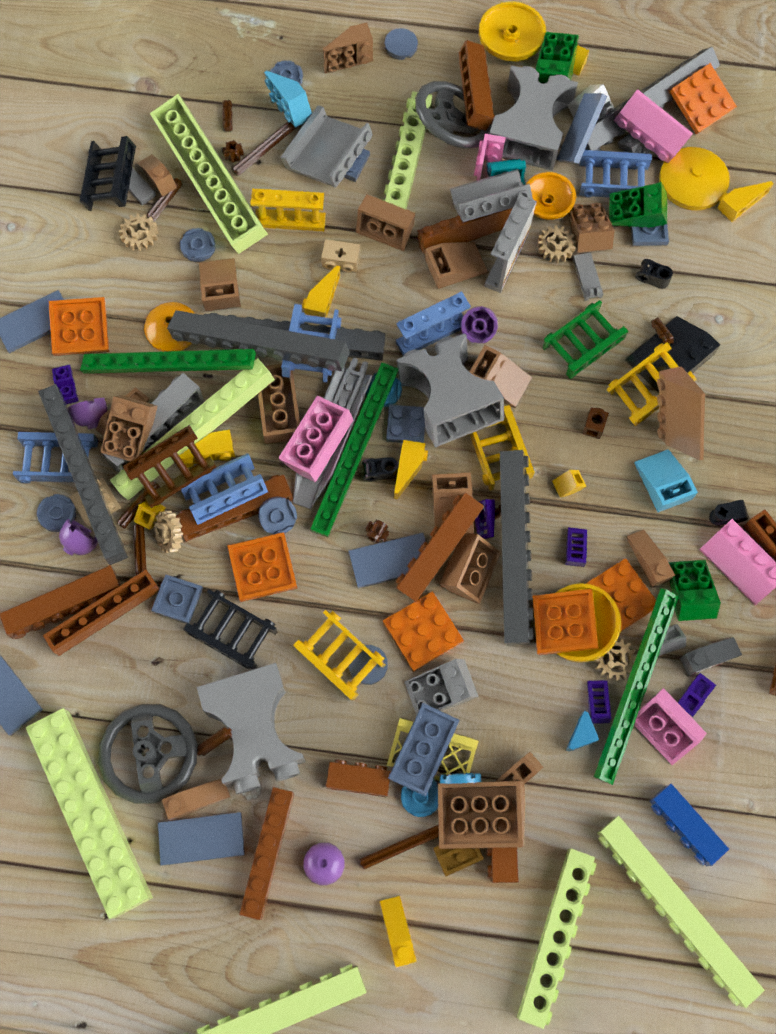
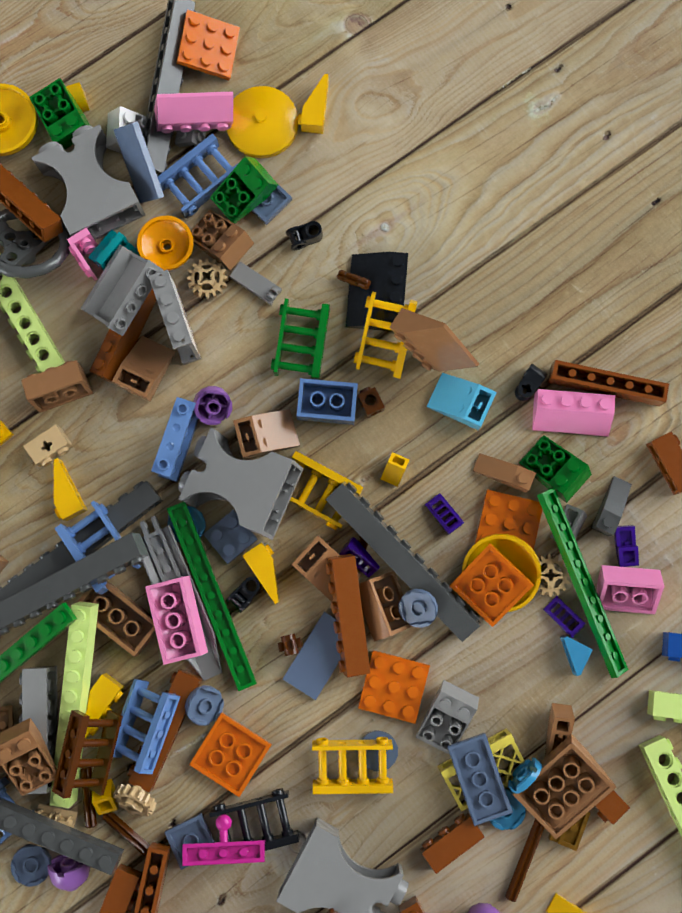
camera: 40 degrees left, 10 degrees up
(194, 622) = (223, 851): none -> dark pink plate
(495, 588) = (418, 608): none -> sand blue tile
(564, 393) = (327, 401): none -> medium blue brick

